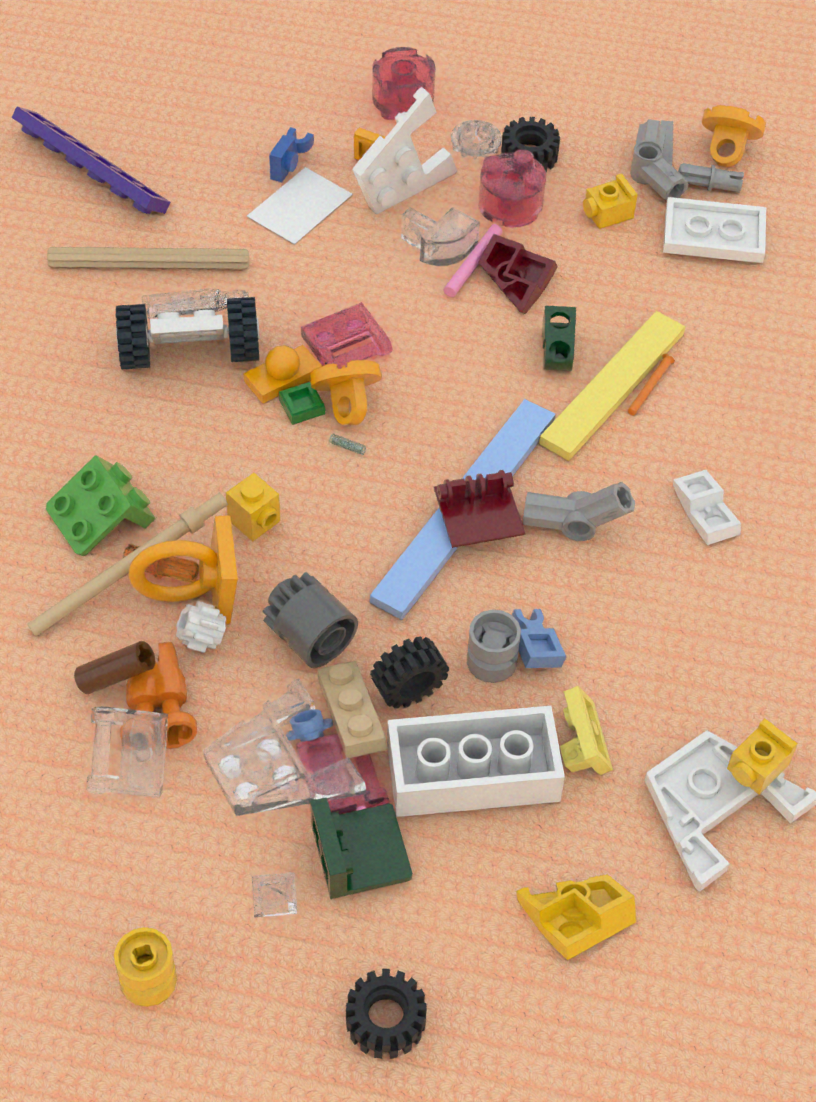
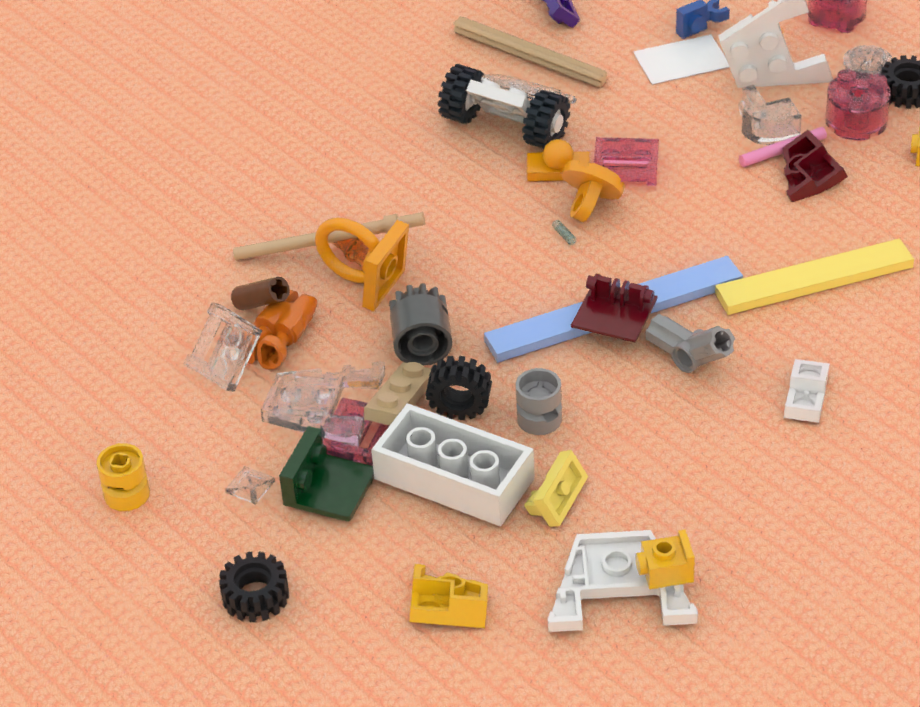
camera: 40 degrees right, 10 degrees down
(96, 503) = (351, 185): bright green bracket -> none
(201, 626) = (343, 297): white gear -> none
(253, 506) = (448, 232): yellow brick -> none
(301, 403) = (554, 191): green tile -> none
(308, 725) = (361, 391): medium blue plate -> none
(538, 645) = (578, 416): medium blue plate -> none
(558, 338) = (793, 226): dark green leg -> none
(667, 360) = (846, 289): orange piece -> none

